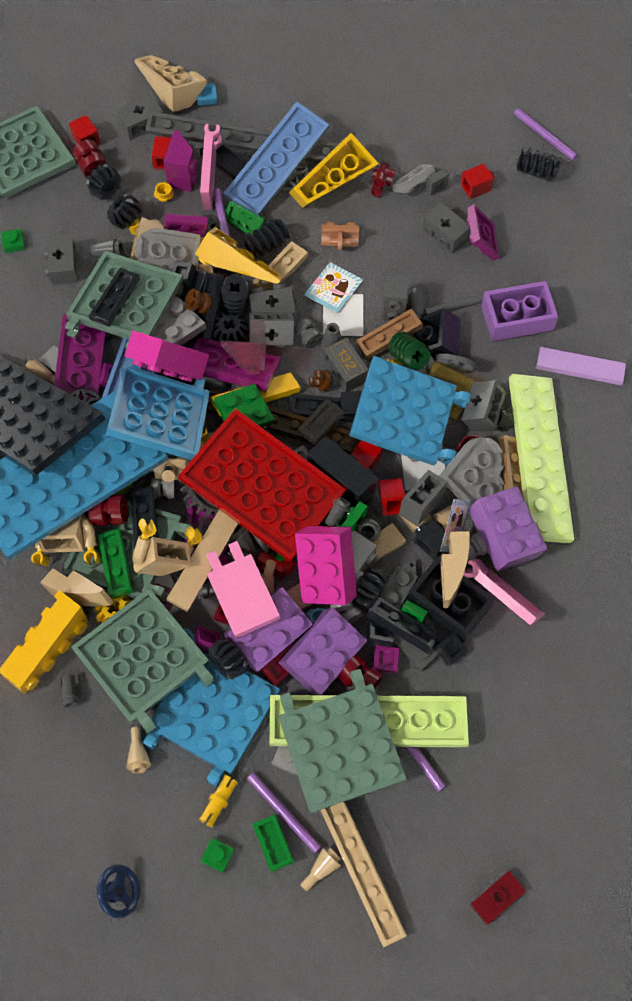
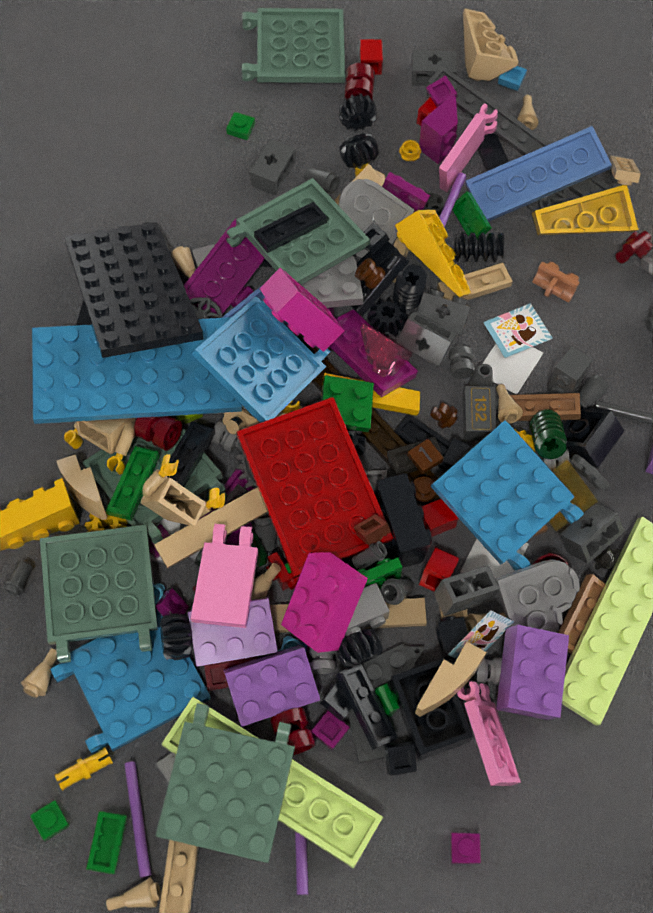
camera: 30 degrees right, 0 degrees up
(162, 132) = (441, 90): none -> magenta plate
(237, 117) = (527, 114): none -> tan cone
(328, 491) = (372, 529): none -> copper plate
(329, 416) = (425, 456): none -> reddish brown tile
(342, 123) = (624, 170): none -> tan plate
(344, 440) = (423, 490): none -> reddish brown plate
(365, 347) = (507, 407): none -> tan cone
(536, 684) = (465, 848): none -> magenta plate

